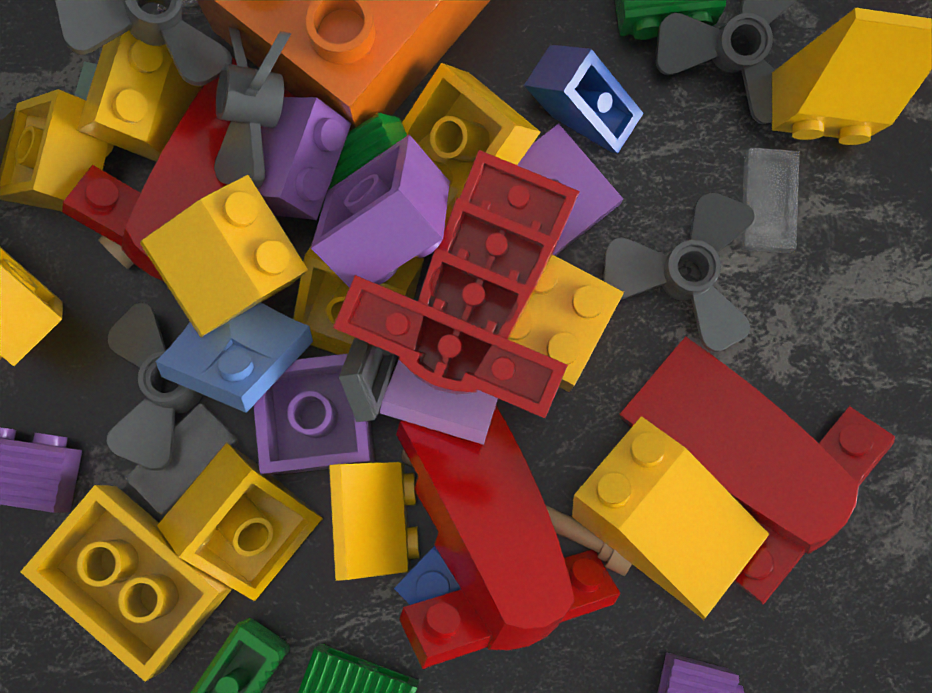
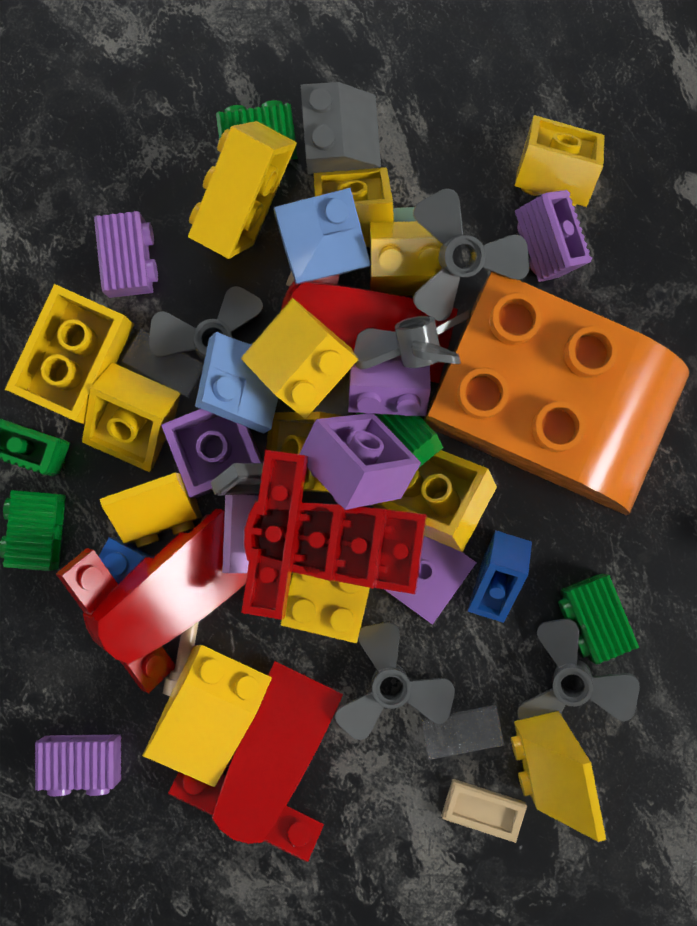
camera: 75 degrees right, 5 degrees up
(71, 187) = (322, 236): none -> medium blue plate
(876, 200) = (484, 810): none -> tan tile

